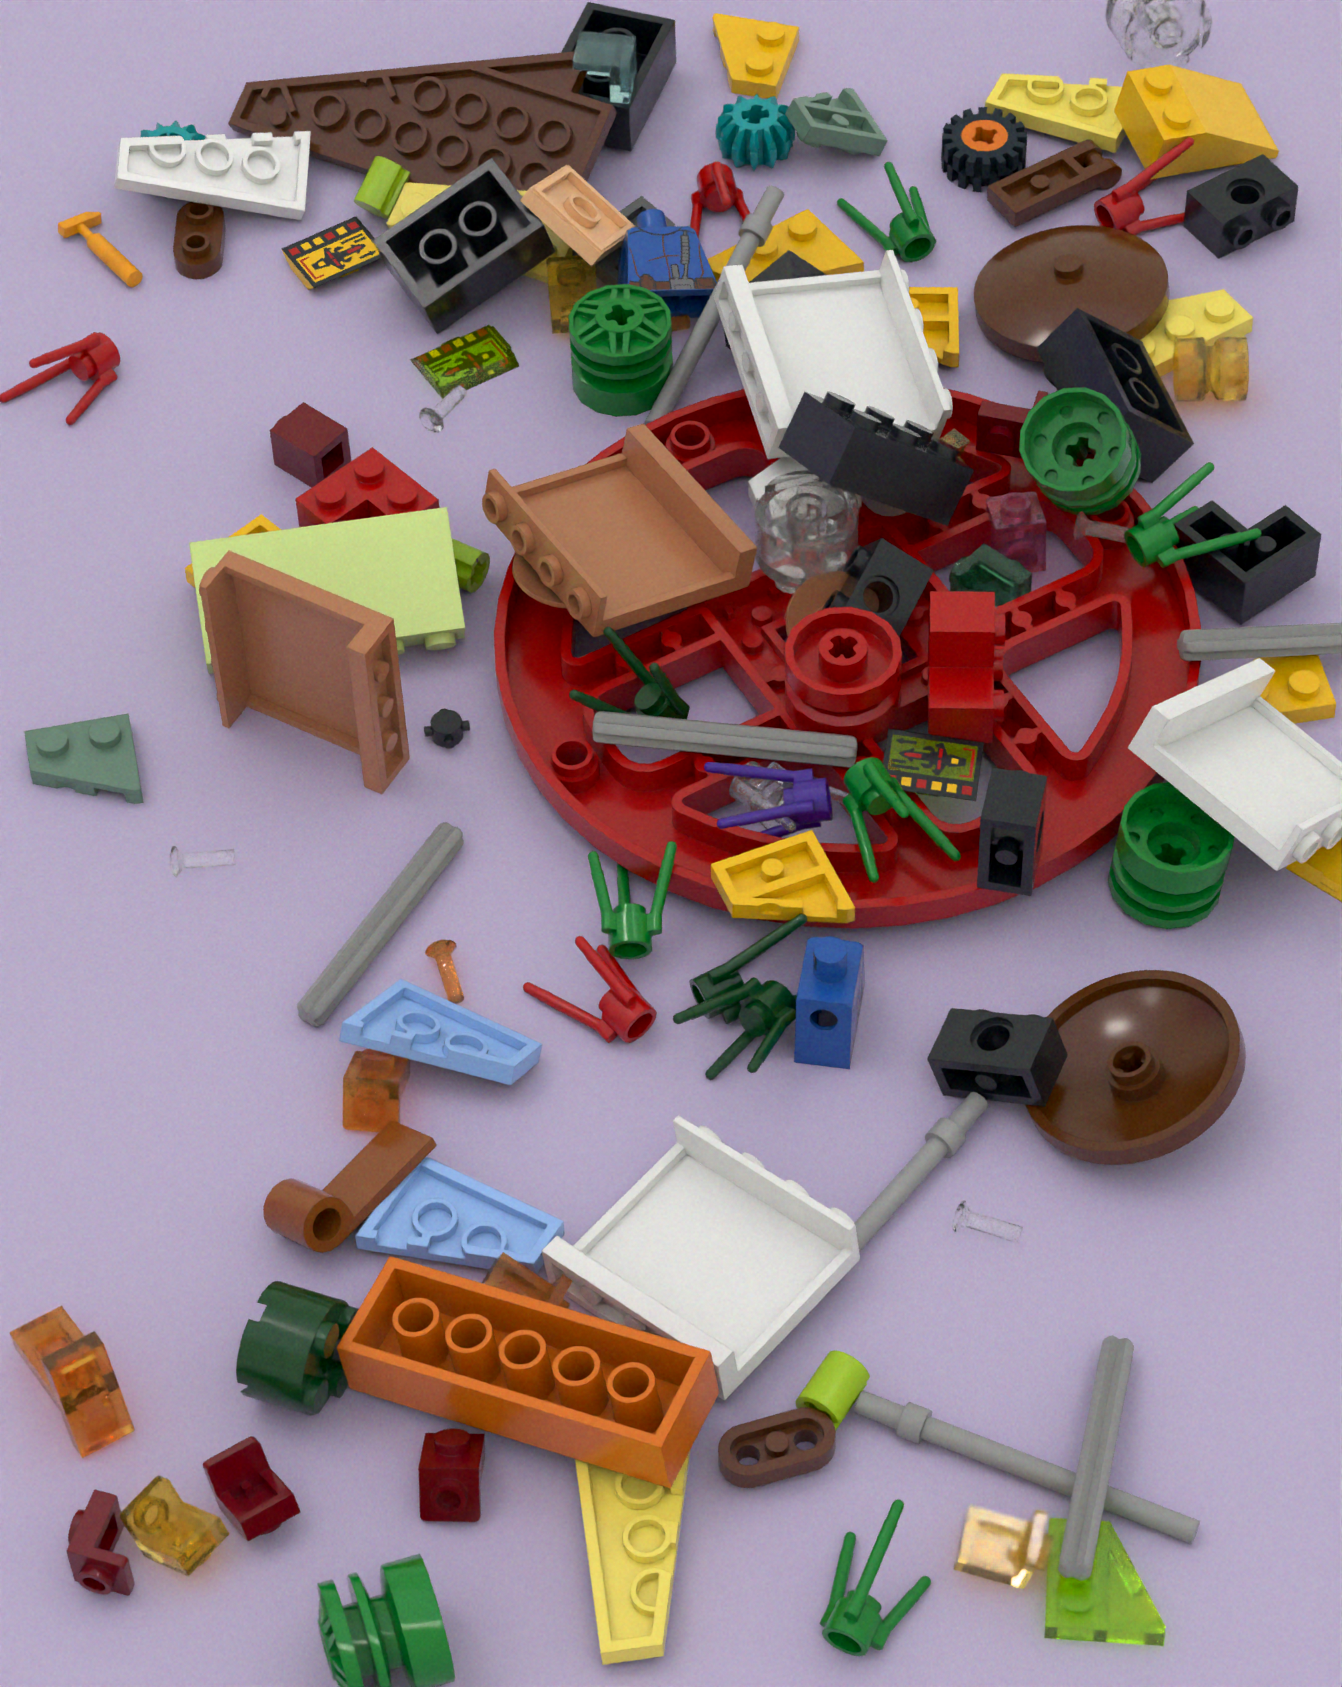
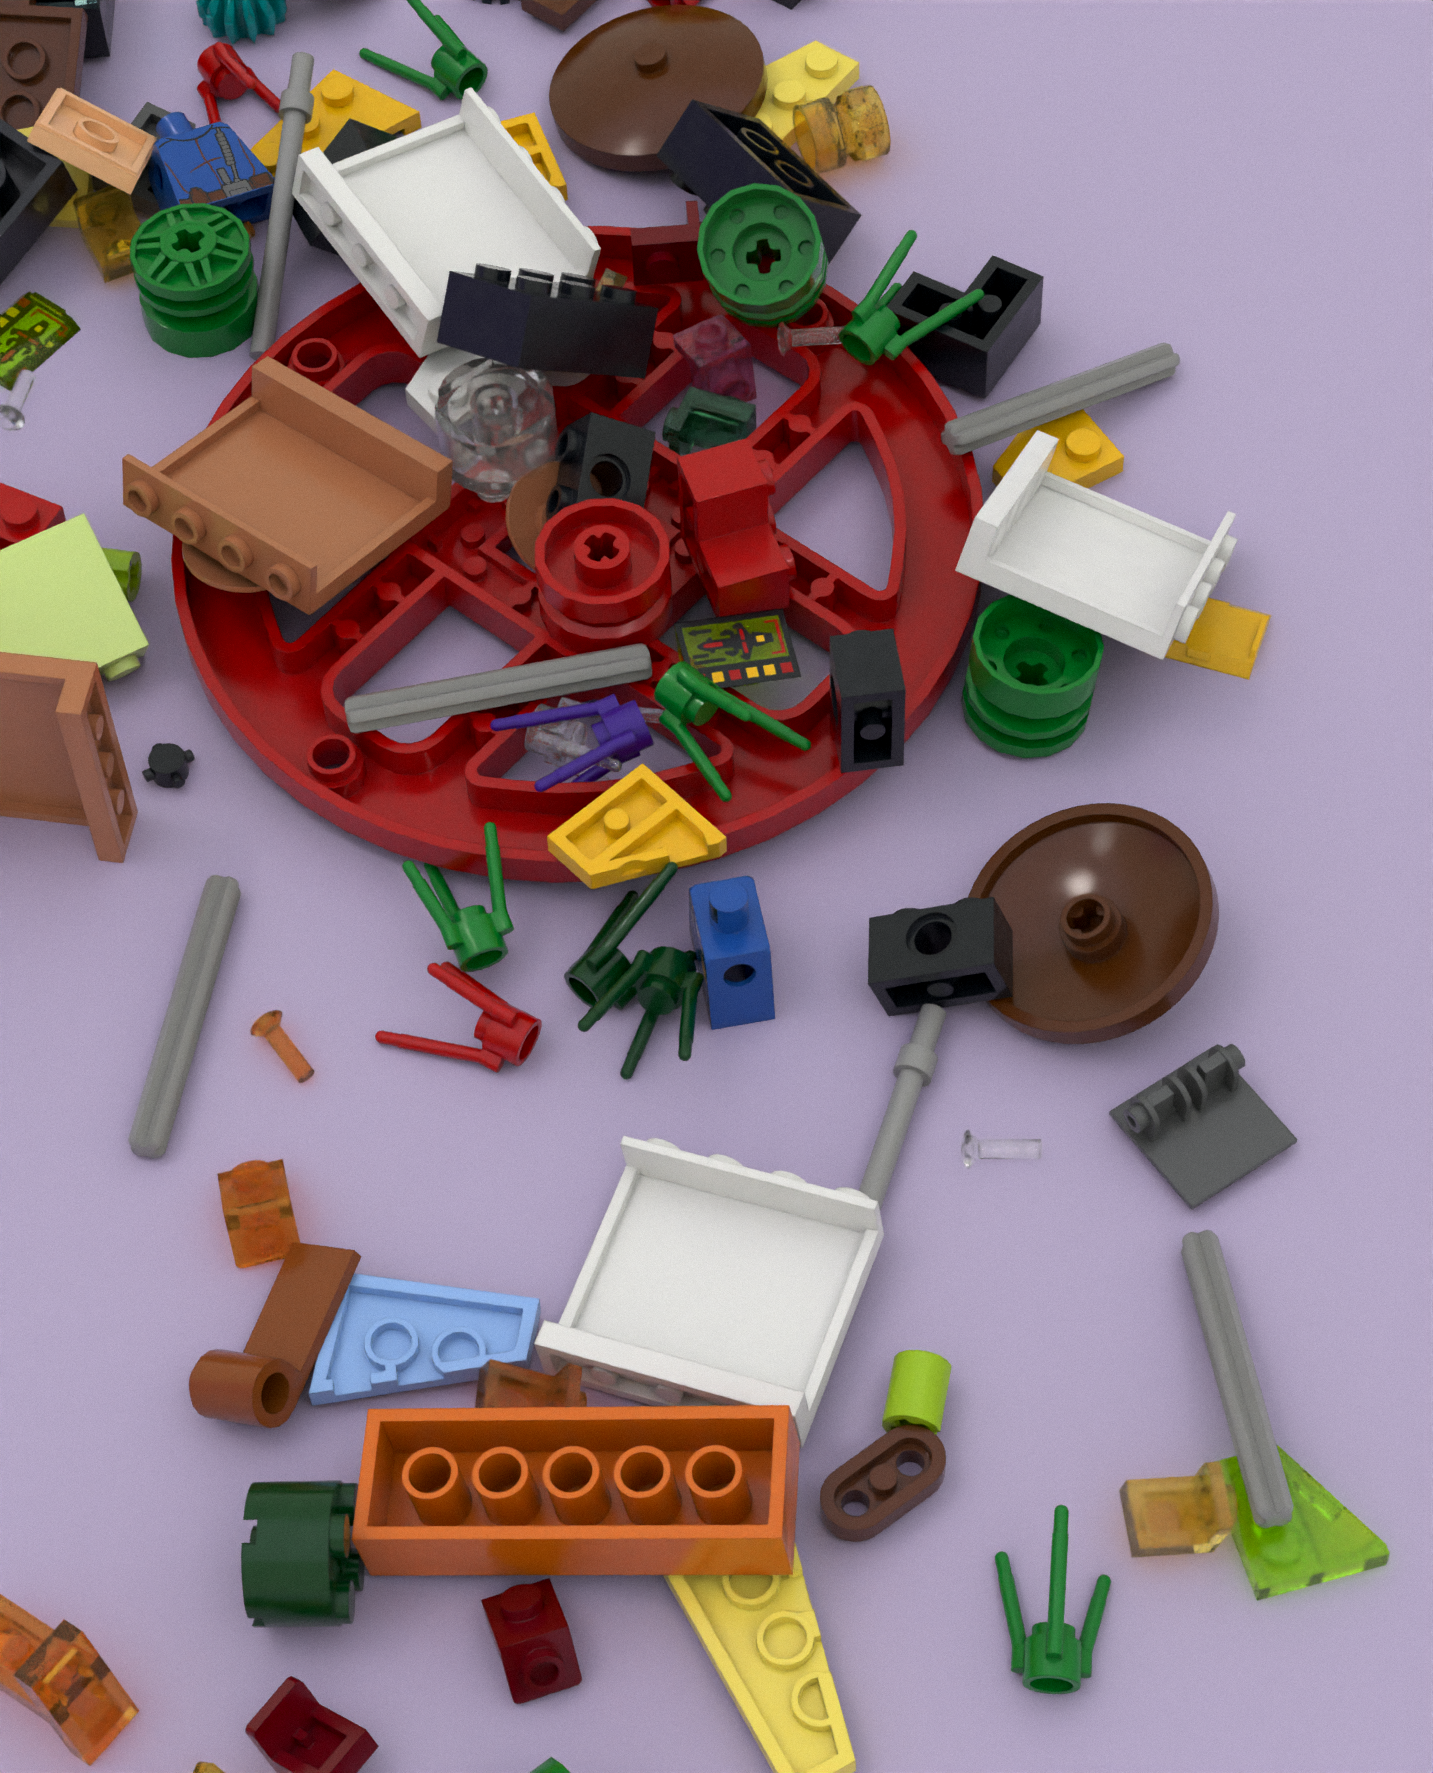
camera: 20 degrees left, 5 degrees up
(440, 1033) = (310, 1123): light blue wing -> none
(653, 699) = (396, 665): dark green plant -> none
(917, 1424) = (1021, 1403): light grey bar -> none
(1162, 1257) = (1203, 1125): none -> dark grey hinge

